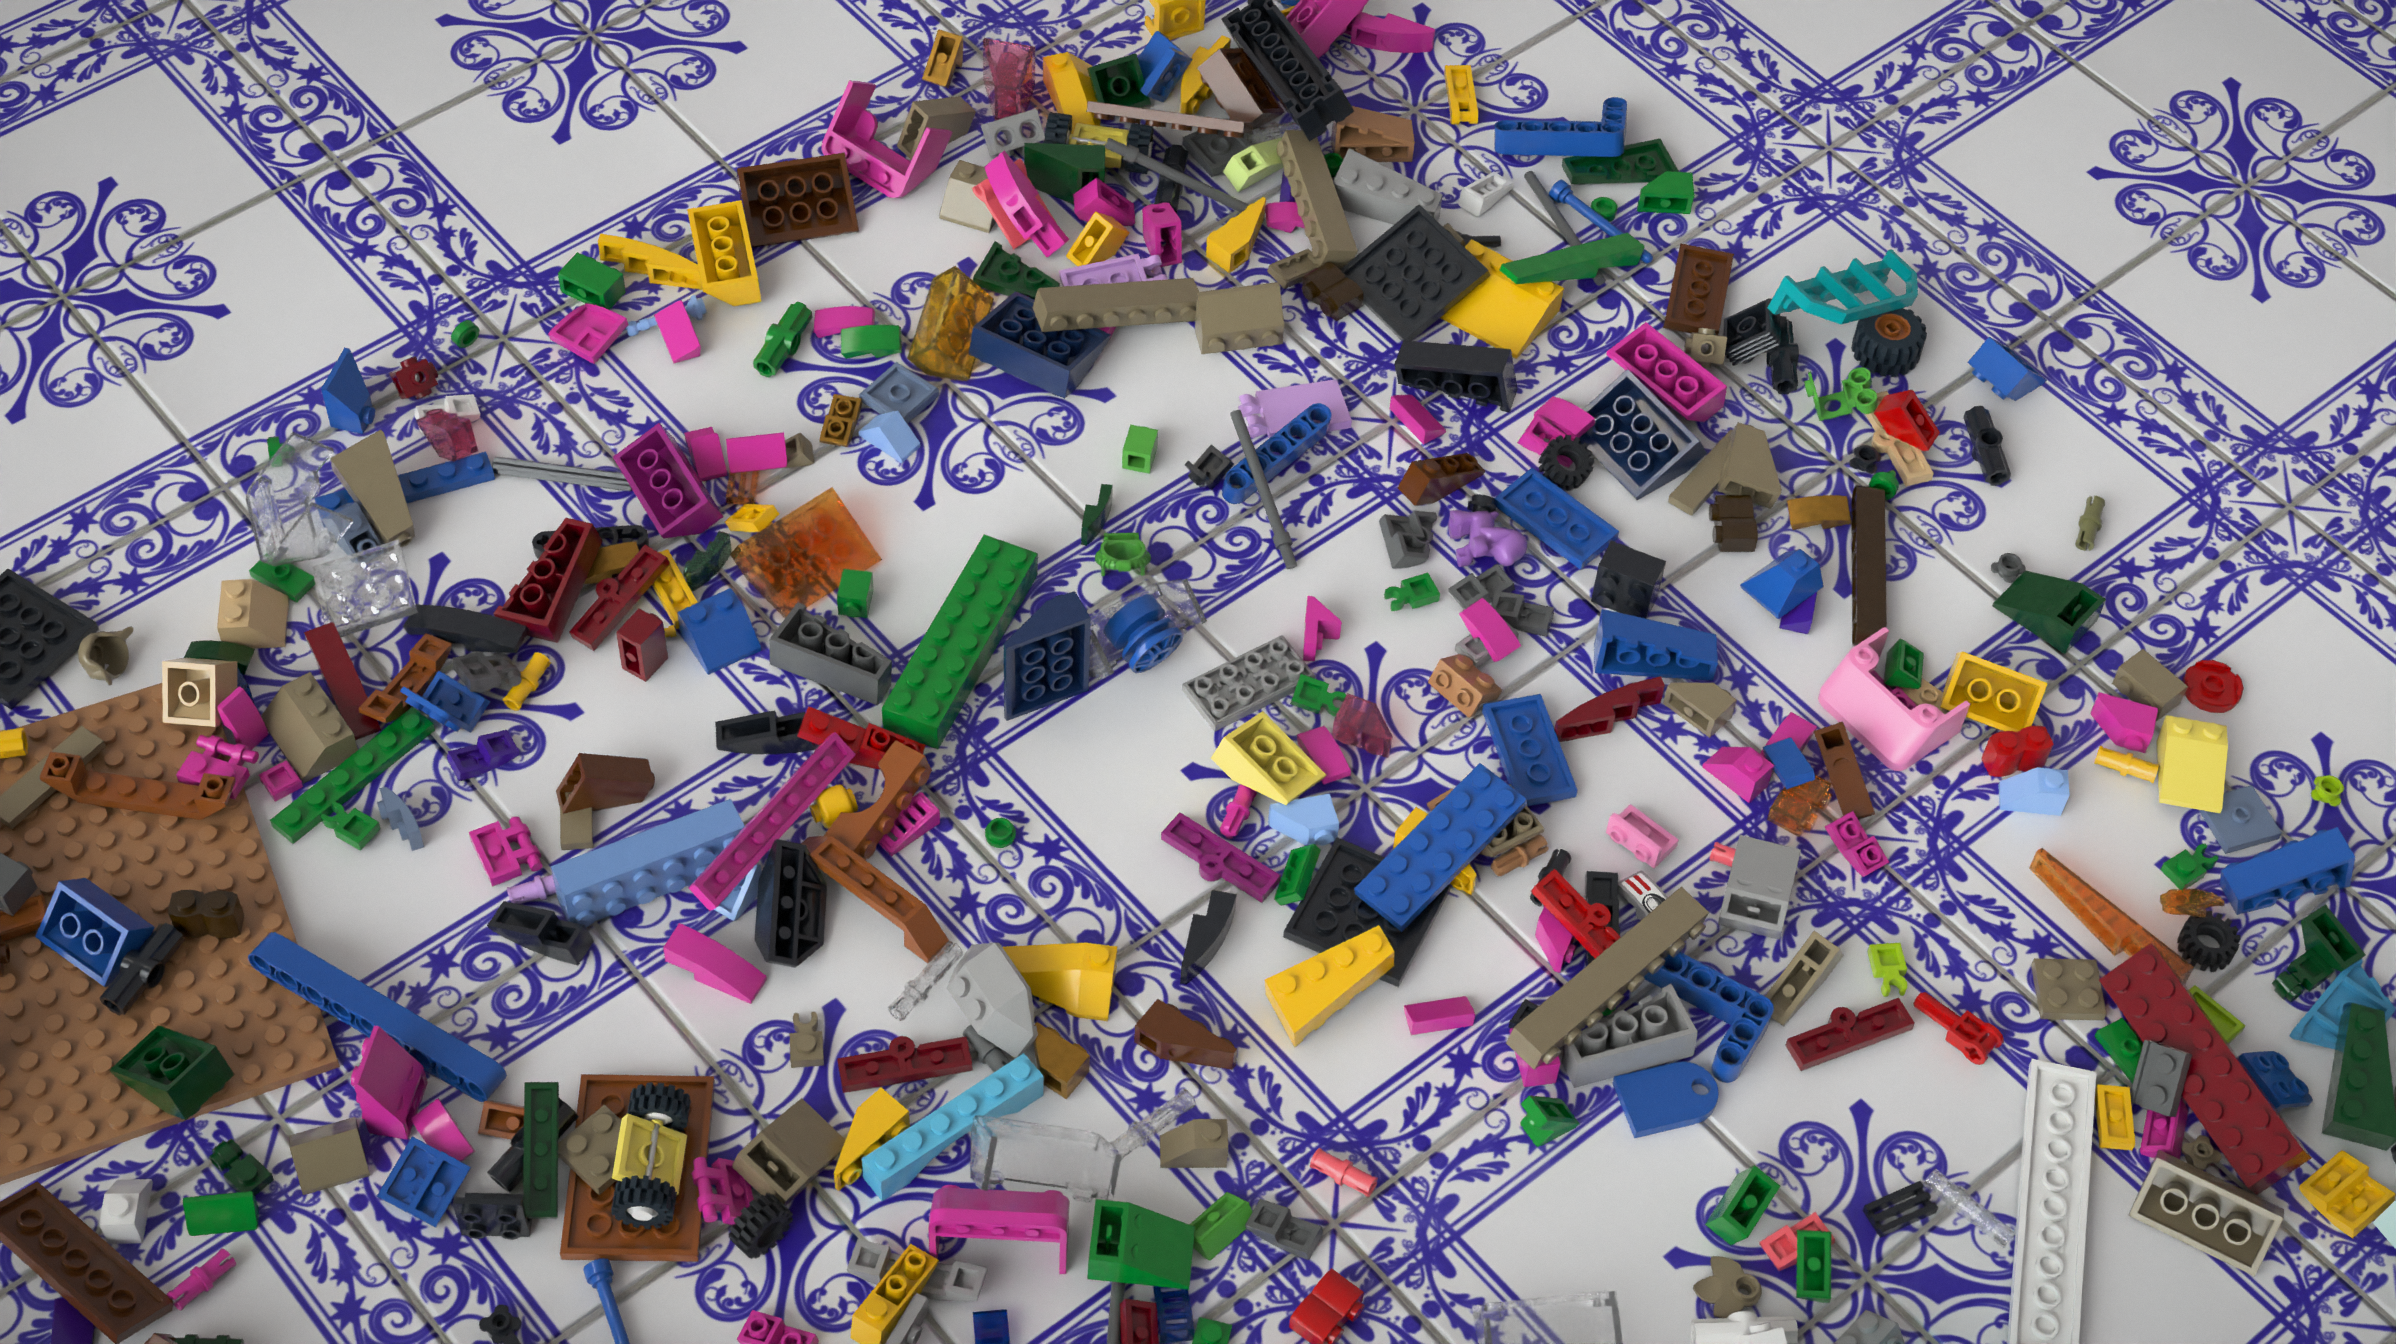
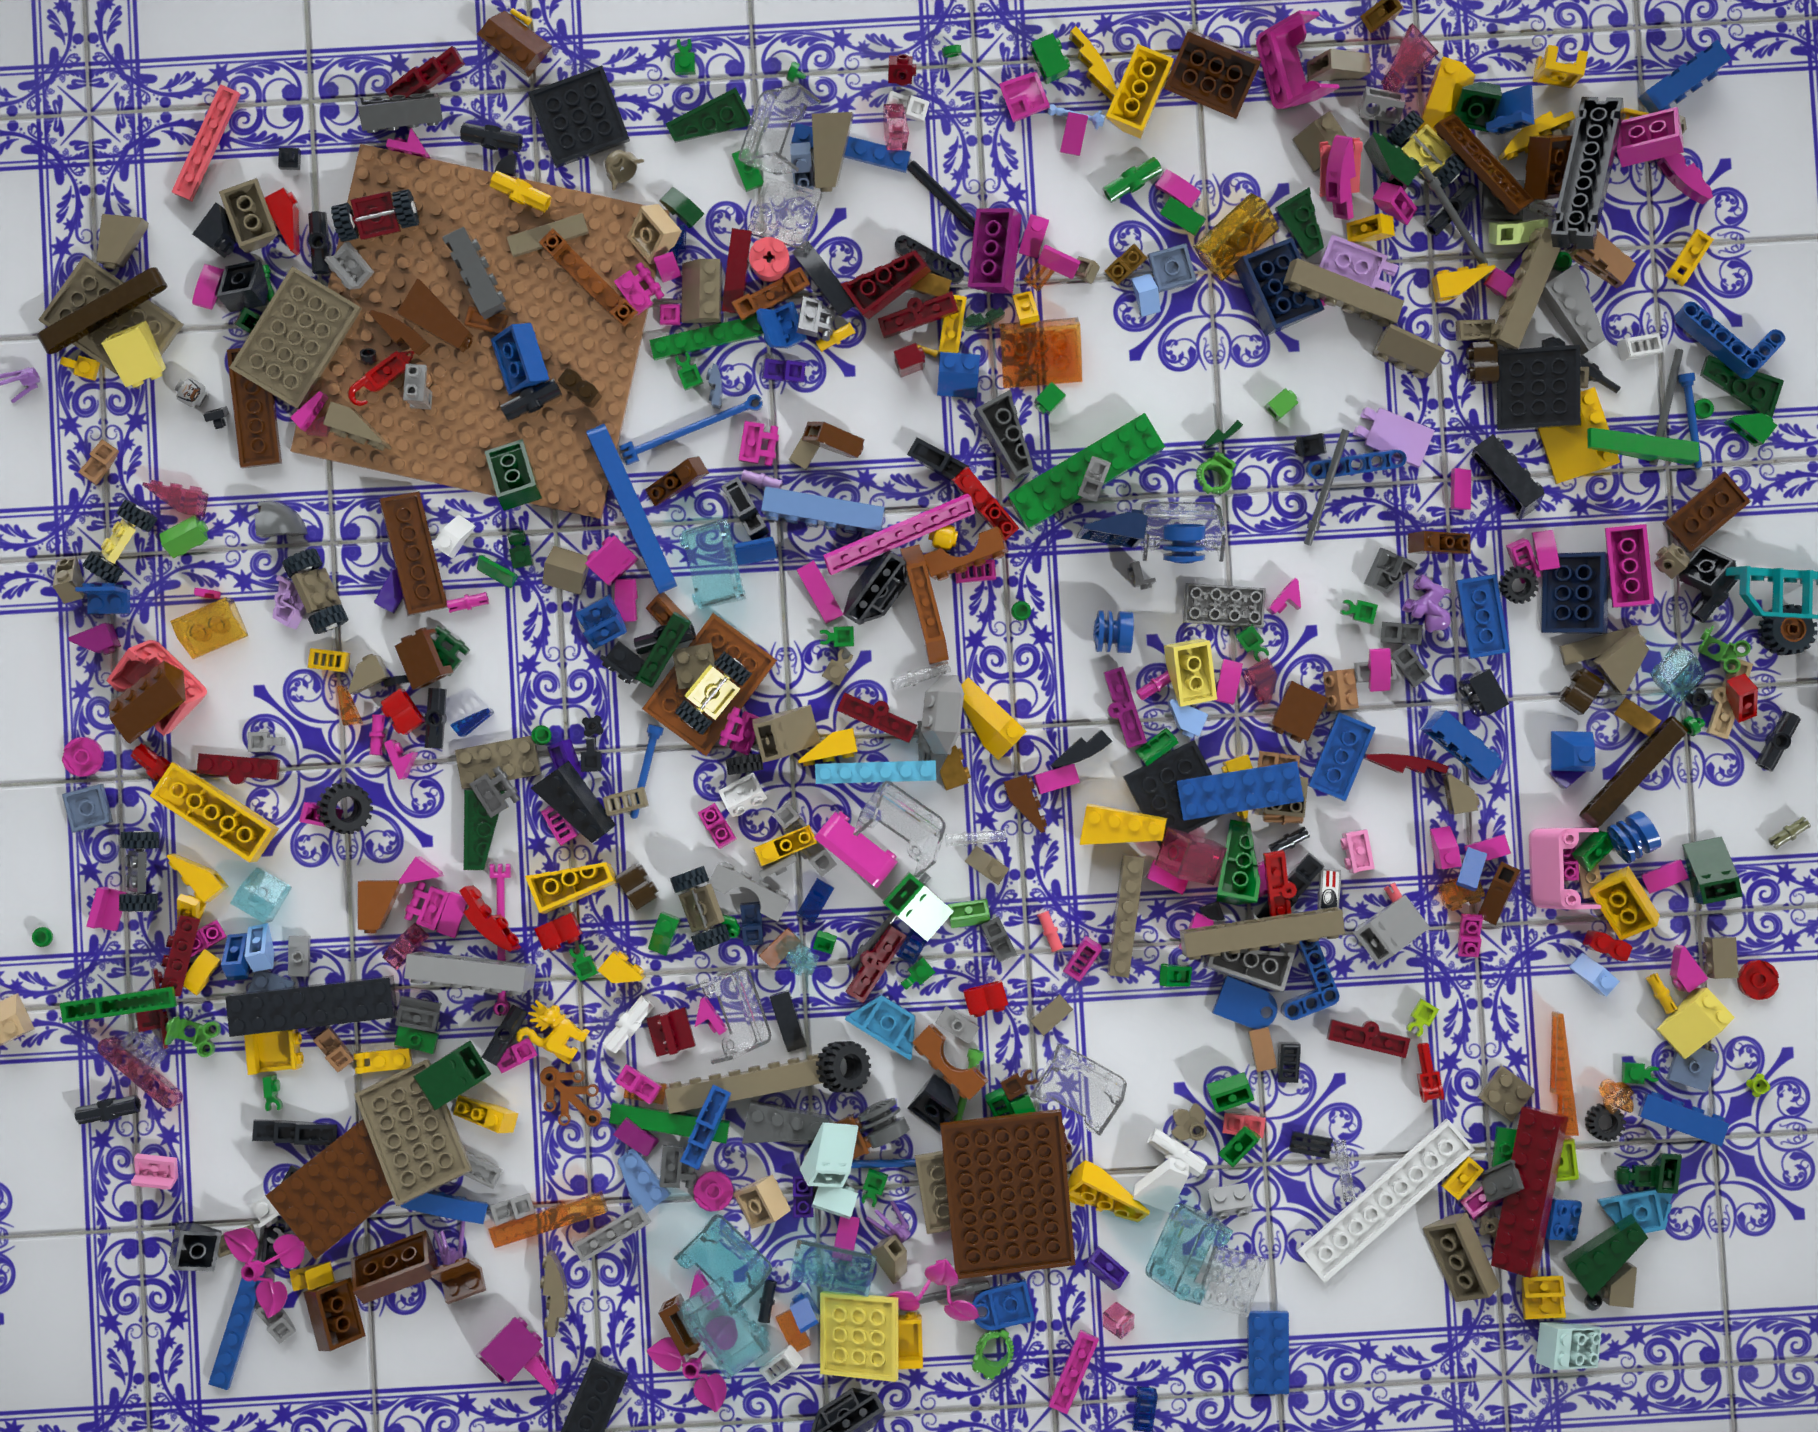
camera: 35 degrees right, 35 degrees up
(119, 513) = (685, 59): none -> green plate
(196, 548) = (713, 117): none -> dark green wing
(252, 614) = (715, 189): tan slope -> none
(347, 396) = (854, 60): blue slope -> none
(378, 644) = (779, 263): none -> coral brick
(419, 953) = (677, 480): none -> reddish brown slope
(459, 818) = (633, 451): none -> blue hinge
(544, 1012) = (713, 564): none -> clear light blue windscreen
(588, 969) = (756, 551): none -> blue panel
(781, 999) = (841, 637): none -> green plate
(787, 1274) = (742, 795): none -> white bracket
(977, 624) = (1094, 478): none -> light grey slope
(1117, 710) = (1135, 573): none -> flat silver bracket
(1137, 775) = (1114, 631): none -> blue wheel
(1161, 225) = (1413, 249): dark pink torso -> none
(1201, 988) = (1056, 778): none -> dark pink slope
(1421, 1154) = (1077, 955): none -> dark pink slope
(1425, 1088) = (1125, 916): none -> dark tan brick
(1432, 1277) = (1051, 1015): none -> dark tan tile
(1435, 733) = (1298, 712): none -> reddish brown panel
(1445, 960) = (1190, 856): none -> clear pink slope
(1481, 503) = (1446, 579): black plate -> none
(1521, 945) = (1239, 872): none -> green wedge
(1741, 1136) = (1262, 1049): none -> medium nougat slope
(1780, 1110) = (1282, 1046): none -> black slope
(1803, 976) = (1370, 992): dark tan slope -> none
(1819, 445) = (1678, 673): none -> clear light blue slope
(1933, 618) = (1634, 836): none -> blue wheel
(2007, 643) = (1665, 876): none -> dark pink slope
(2008, 567) = (1718, 831): dark grey plate -> none

